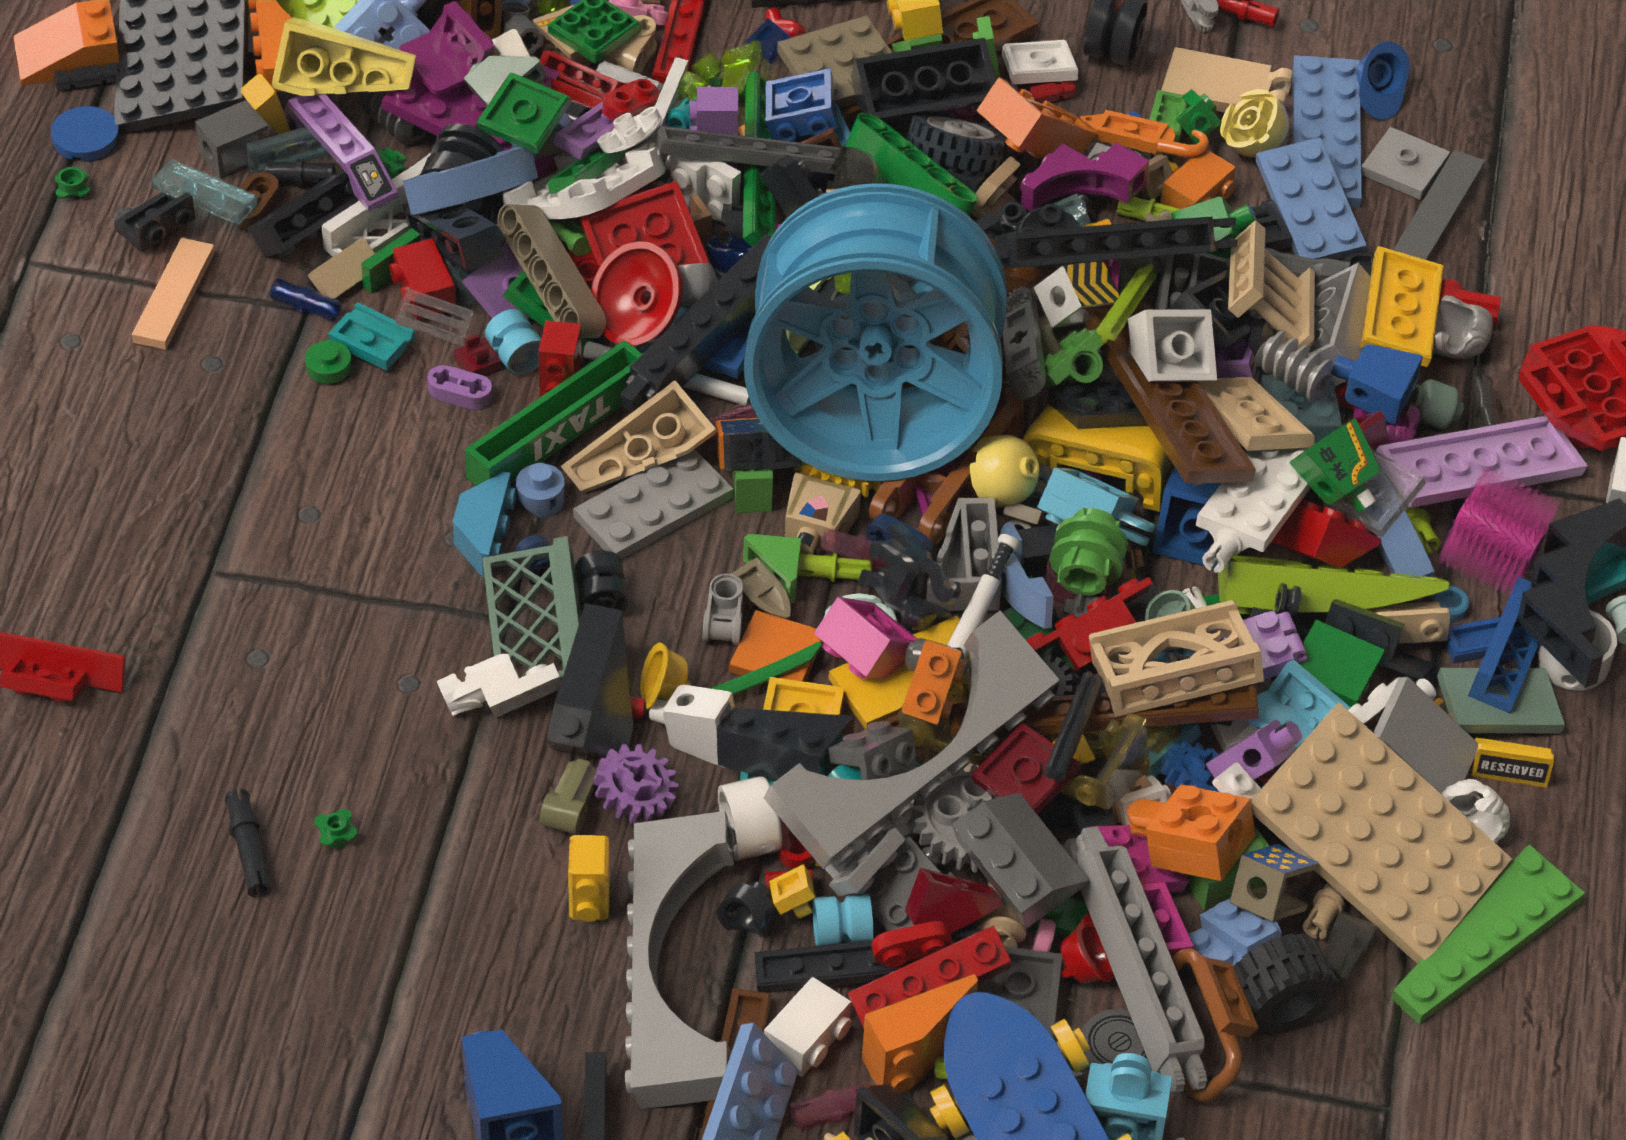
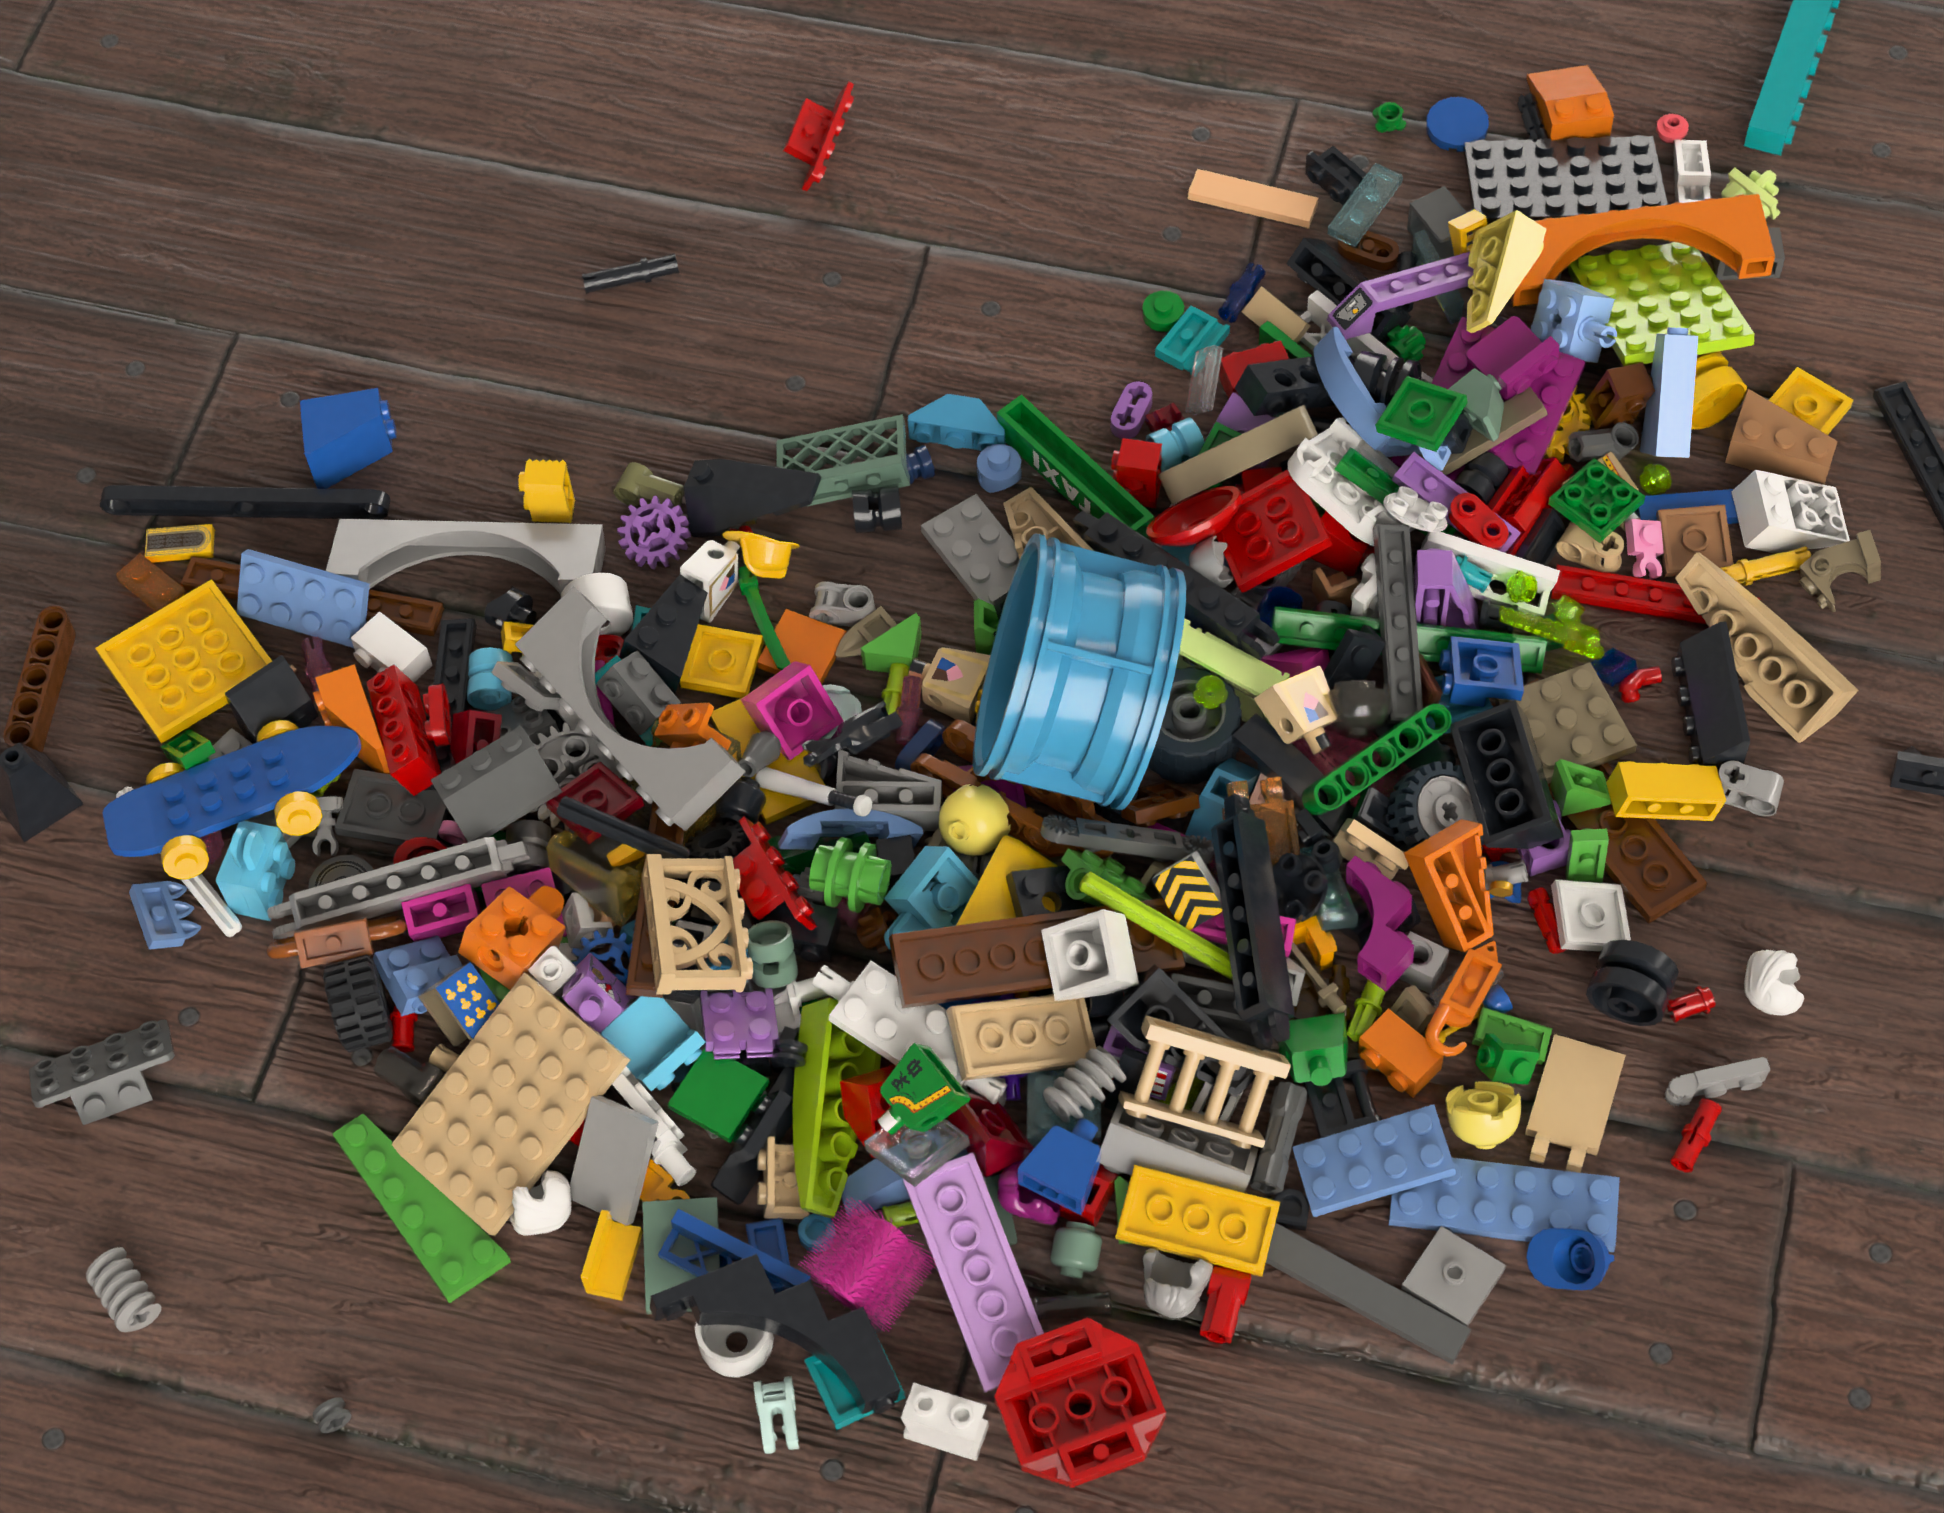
camera: 100 degrees right, 10 degrees up
(338, 836) = (640, 338): green plate -> none
(499, 685) = (768, 428): white plate -> none

